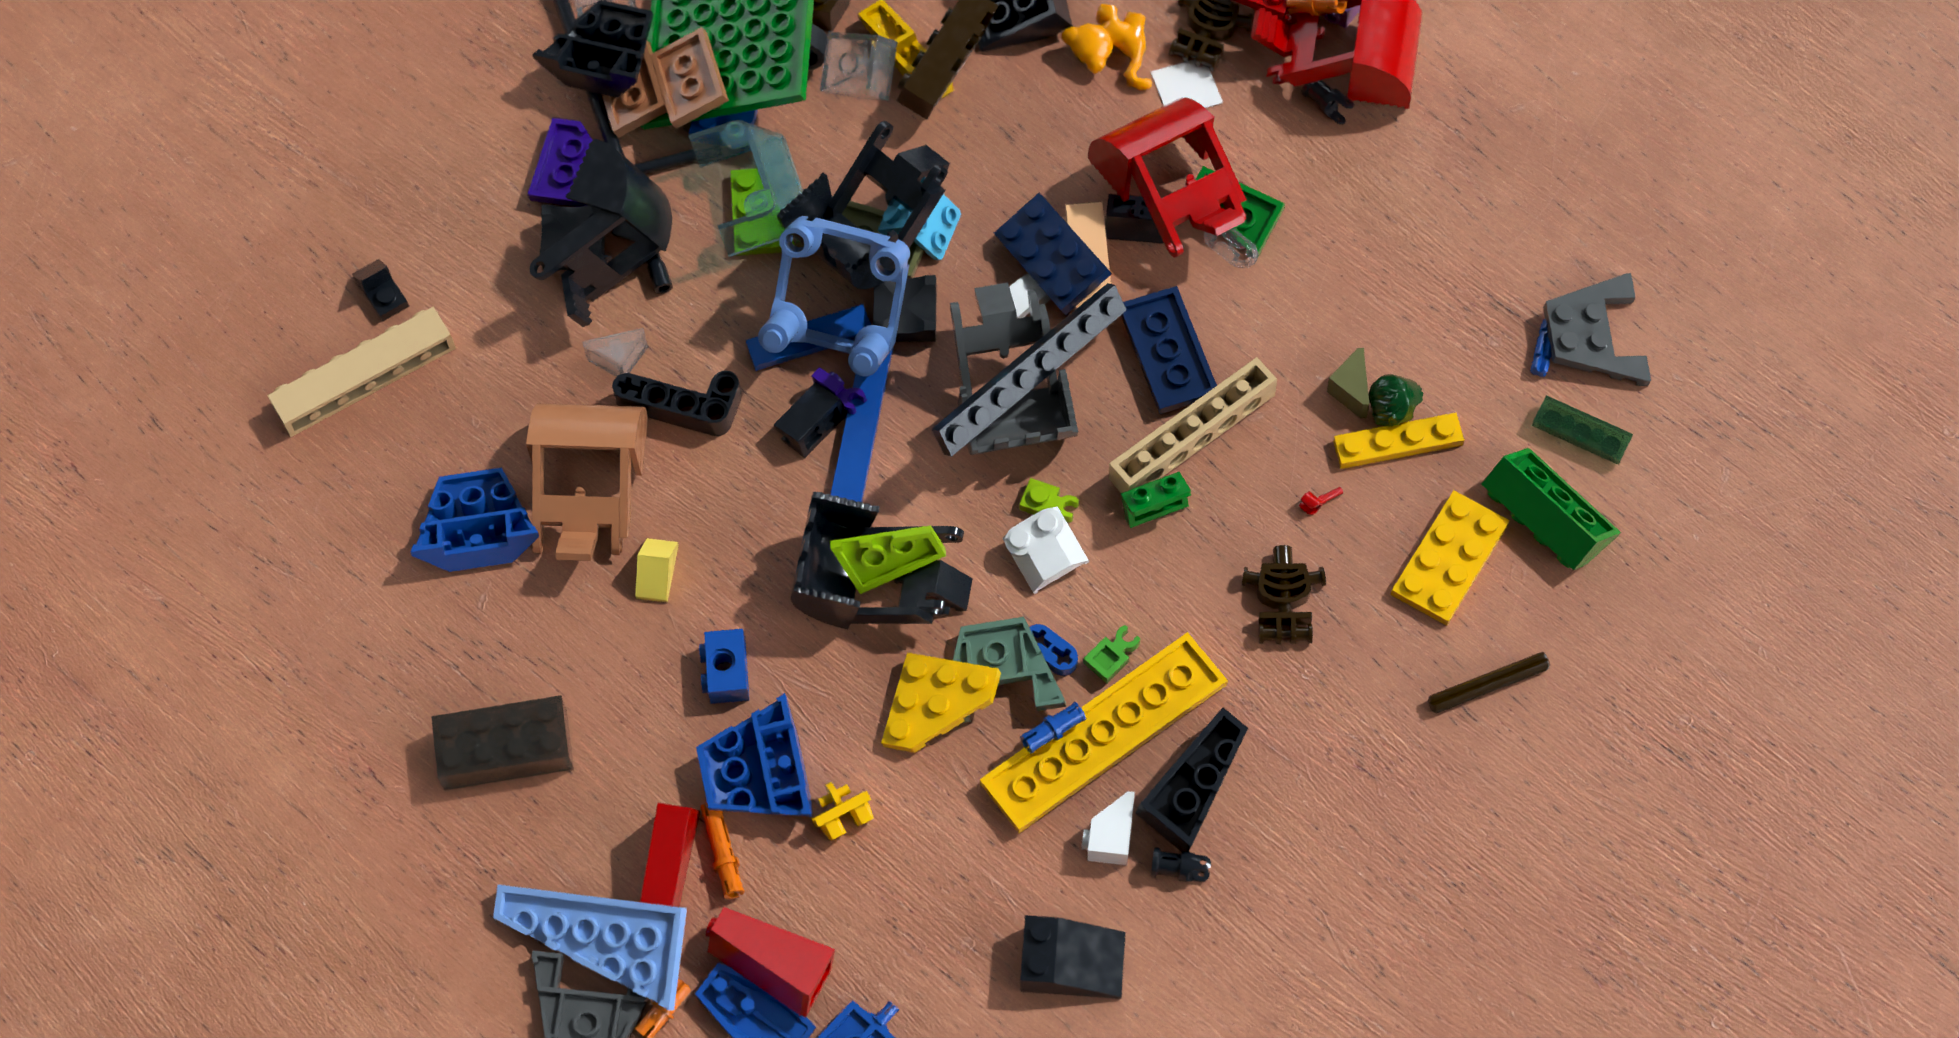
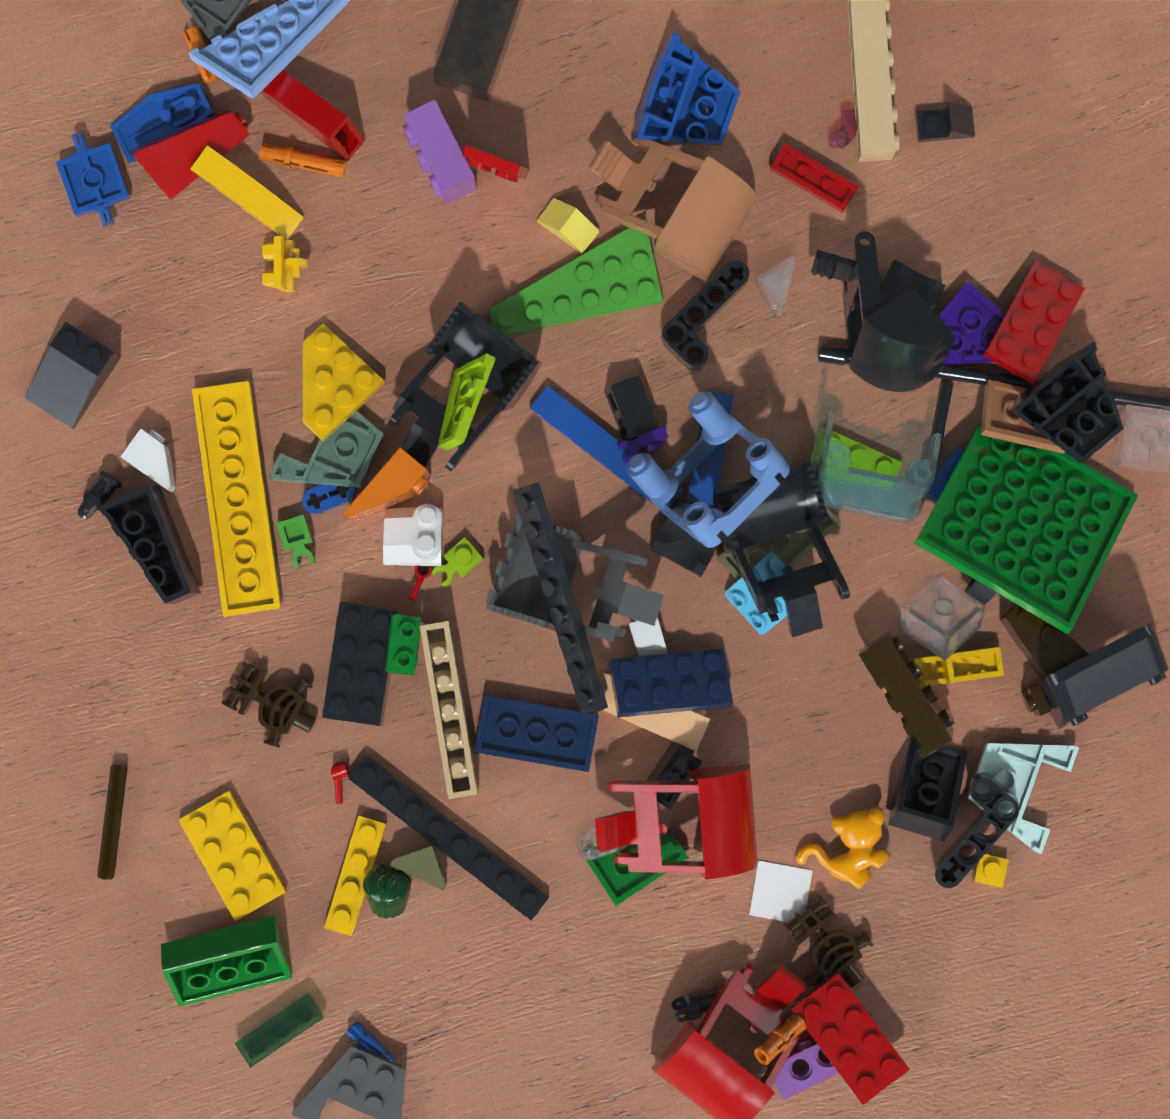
camera: 115 degrees right, 20 degrees up
(430, 366) = (846, 133): none -> clear pink arm
(493, 372) = (813, 178): none -> red plate
(536, 122) = (1034, 321): none -> red plate
(632, 644) = (487, 161): none -> red plate
(646, 711) = (438, 152): none -> medium lavender brick
(689, 78) = (999, 462): nougat plate -> none
(704, 516) = (599, 283): none -> bright green wing
(732, 683) = (462, 248): blue brick -> none
(757, 765) = (348, 217): blue wedge -> none
(786, 880) = (247, 193): none -> yellow slope
(1008, 586) = (393, 484): none -> orange slope
(1052, 727) = (254, 456): blue pin -> none
(1085, 523) = (418, 582): none -> red hand
(1198, 531) = (357, 671): none -> black brick
(1312, 380) = (448, 837): none -> black plate

